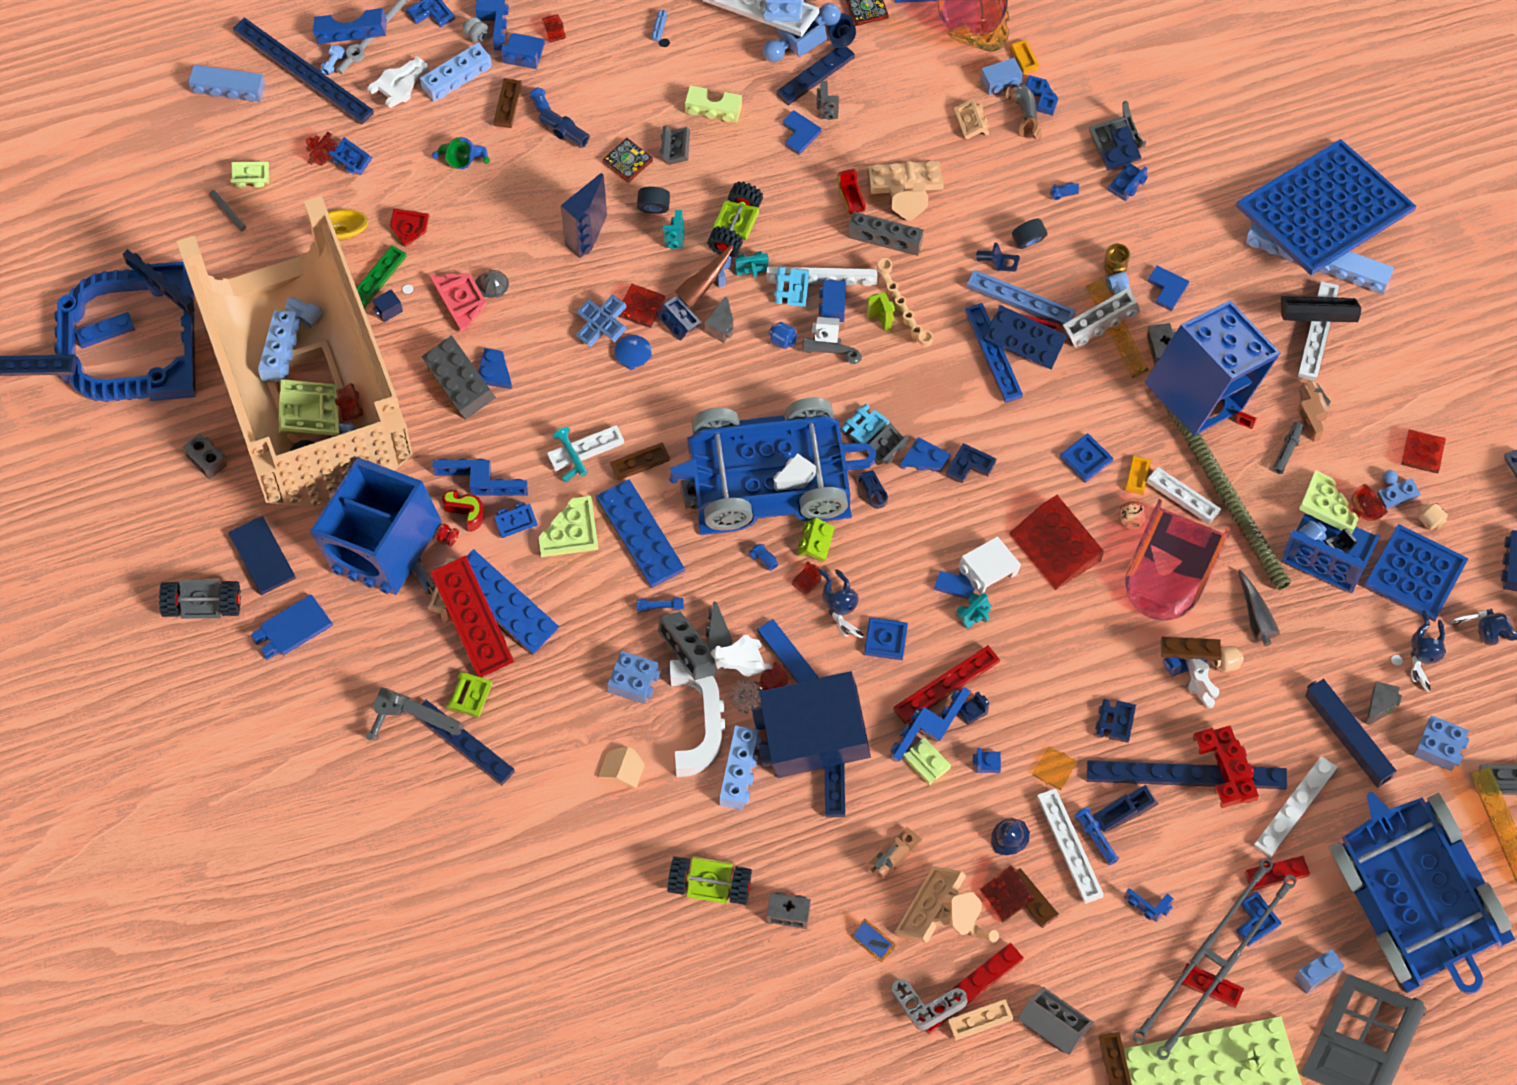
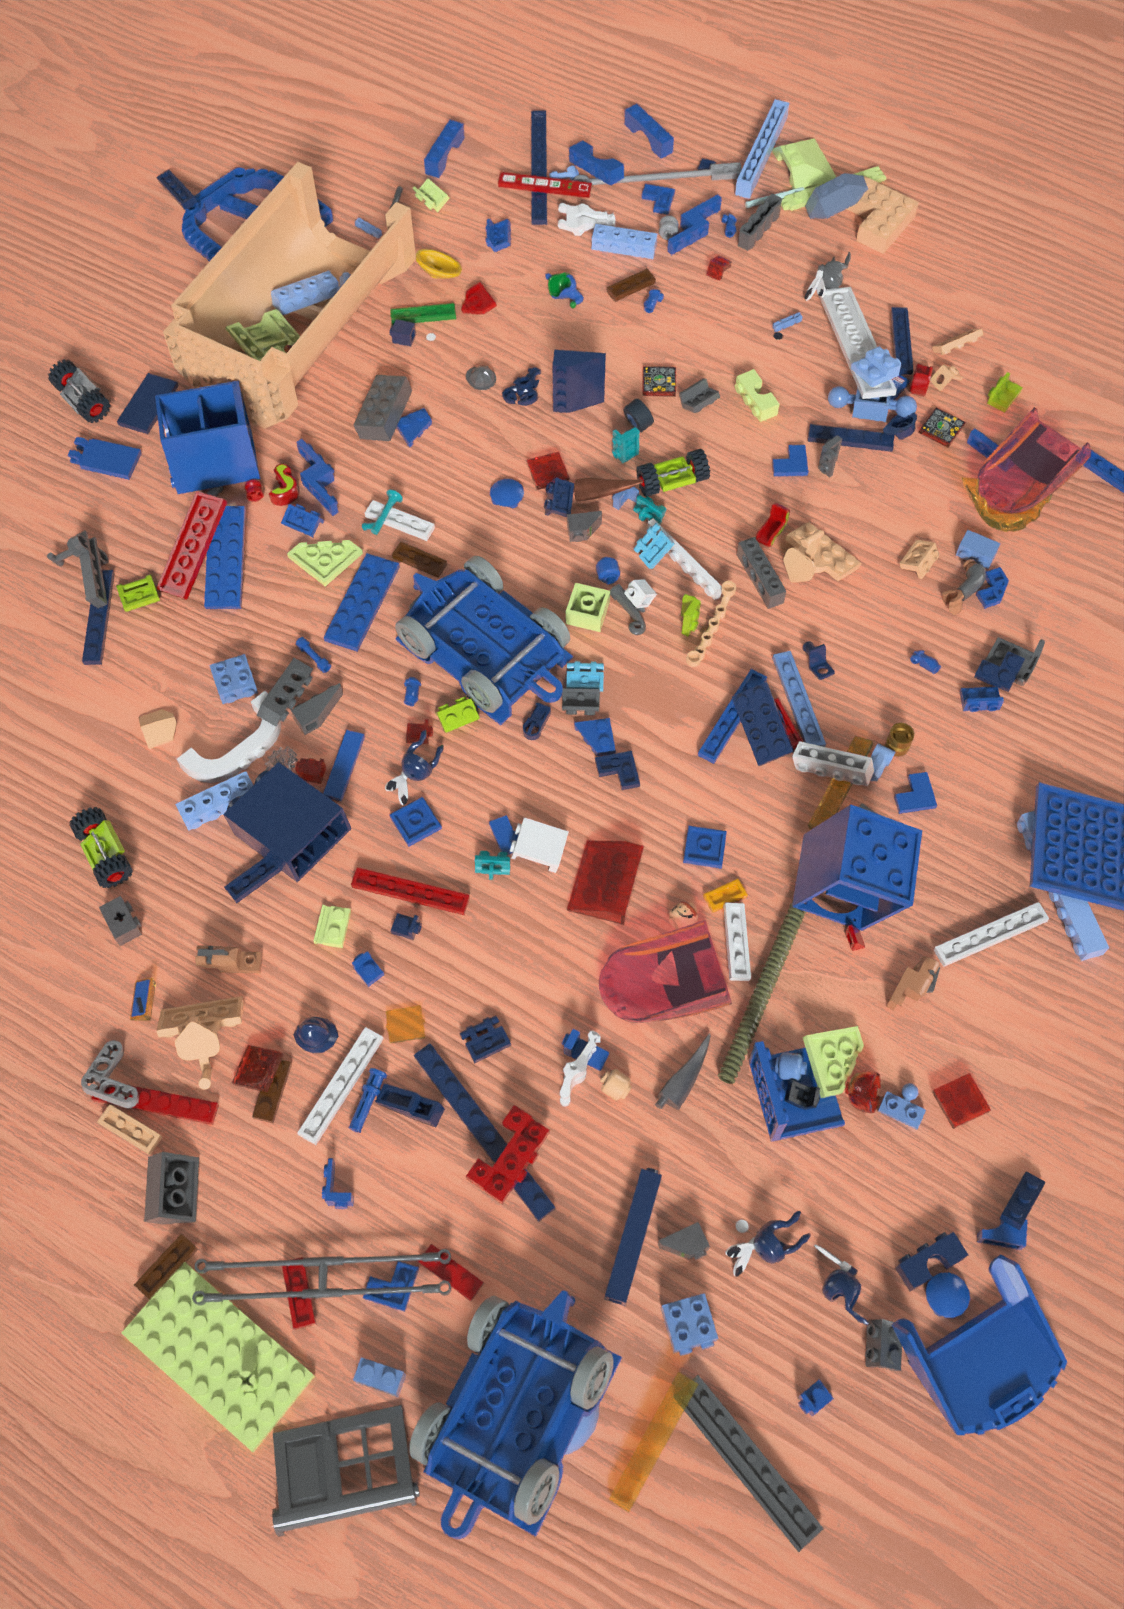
camera: 50 degrees right, 0 degrees up
(206, 124) = (437, 156): none -> blue arch
(226, 83) = (487, 137): medium blue brick -> none
(234, 248) = (369, 228): none -> medium blue axle
(316, 154) = (487, 212): clear red hips -> none
(333, 82) = (544, 185): none -> red tile
(460, 297) = (450, 367): coral wing -> none
(523, 50) = (680, 265): blue bracket -> none
(539, 260) = (524, 388): none -> dark blue animal
(563, 127) = (644, 327): dark blue piece -> none
(601, 320) = (509, 455): medium blue plate -> none
(741, 656) = (306, 733): white animal -> none
(795, 475) = (485, 654): white slope -> none
(806, 374) = (587, 607): none -> yellowish green brick
(833, 299) = (670, 581): blue brick -> none
(929, 724) = (360, 902): blue bracket -> none
(1024, 56) = (1013, 553): light orange tile -> none
(1029, 233) = (860, 663): black wheel -> none
(1190, 648) = (589, 1044): reddish brown plate -> none
(1291, 440) = (866, 988): dark grey pin -> none
(1295, 807) = (526, 1242): white plate -> none
(1320, 309) = (1008, 917): black piece -> none
(1416, 572) = (839, 1181): blue plate -> none
(1433, 516) = (905, 1154): light nougat head -> none

